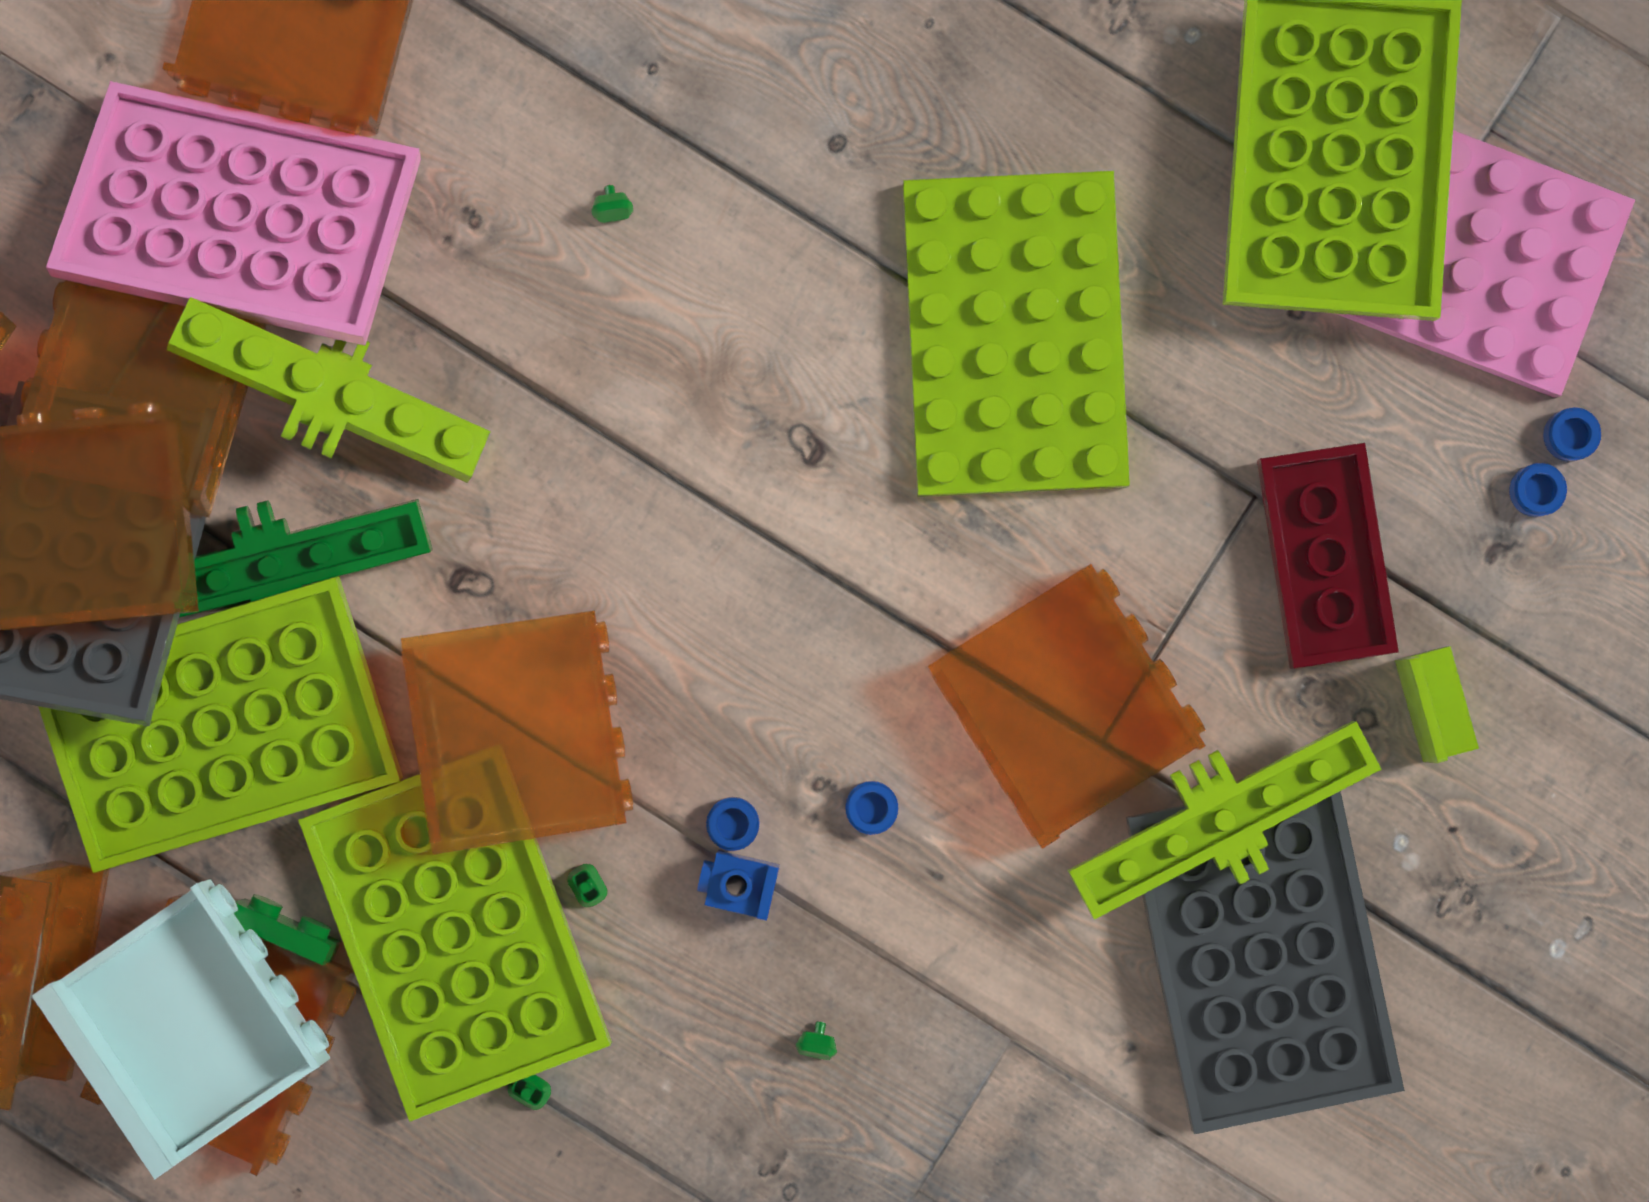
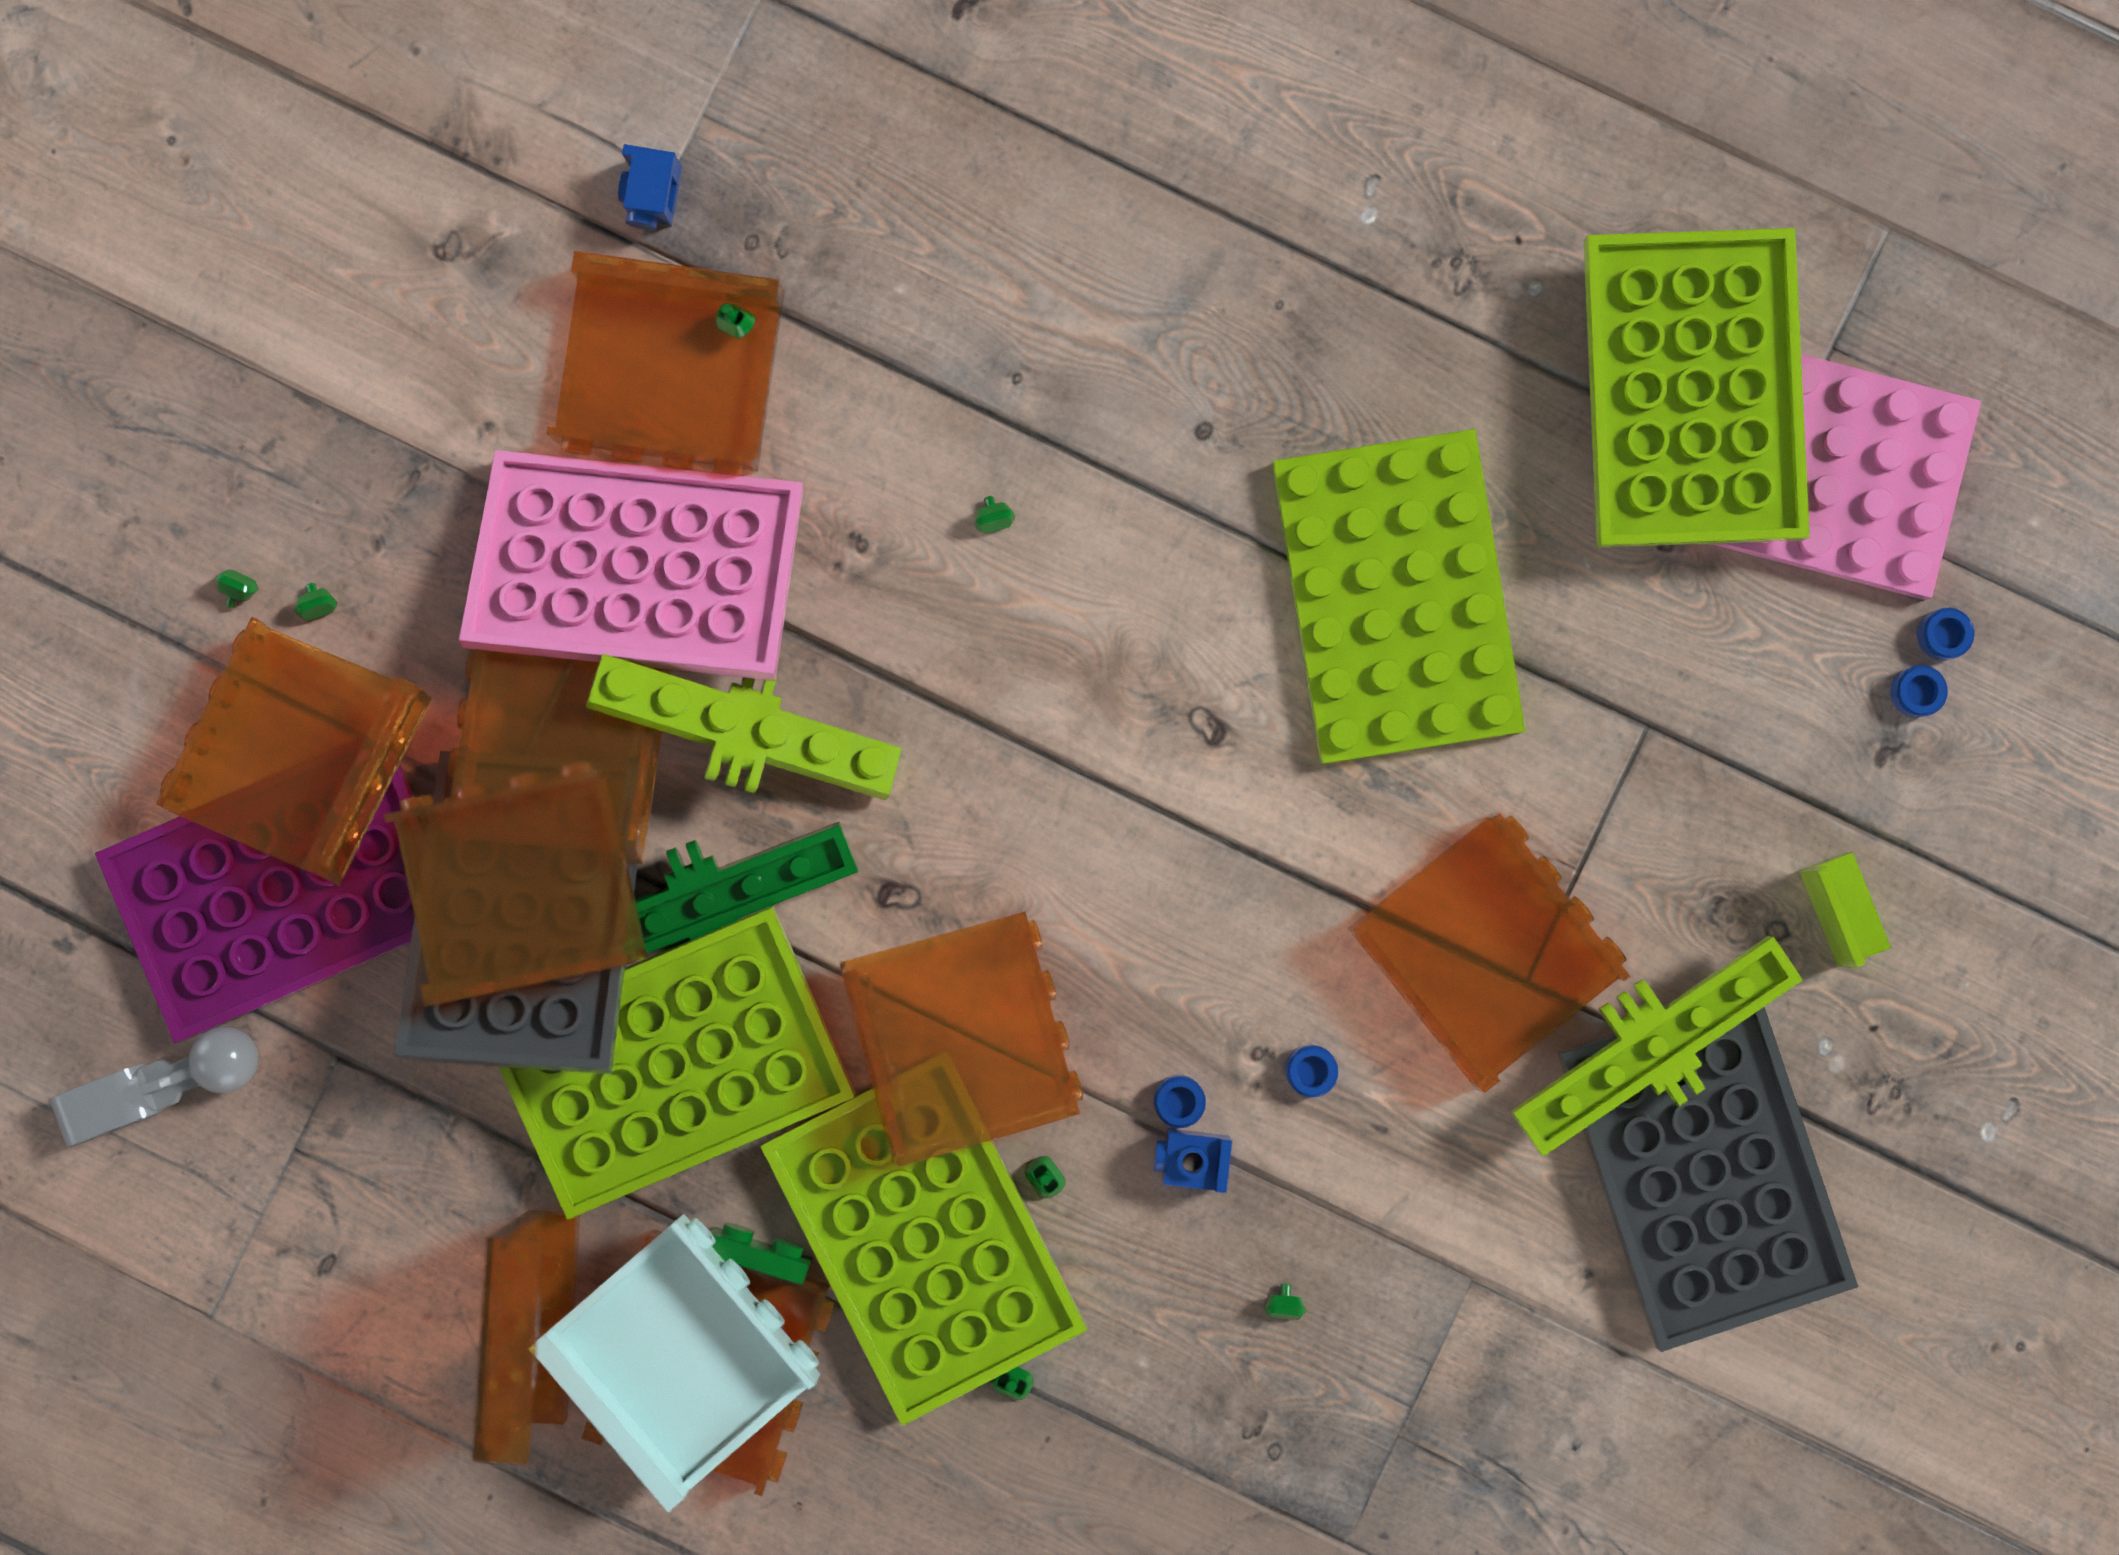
camera: 10 degrees left, 0 degrees up
(1327, 555) = (1724, 778): dark red plate -> none

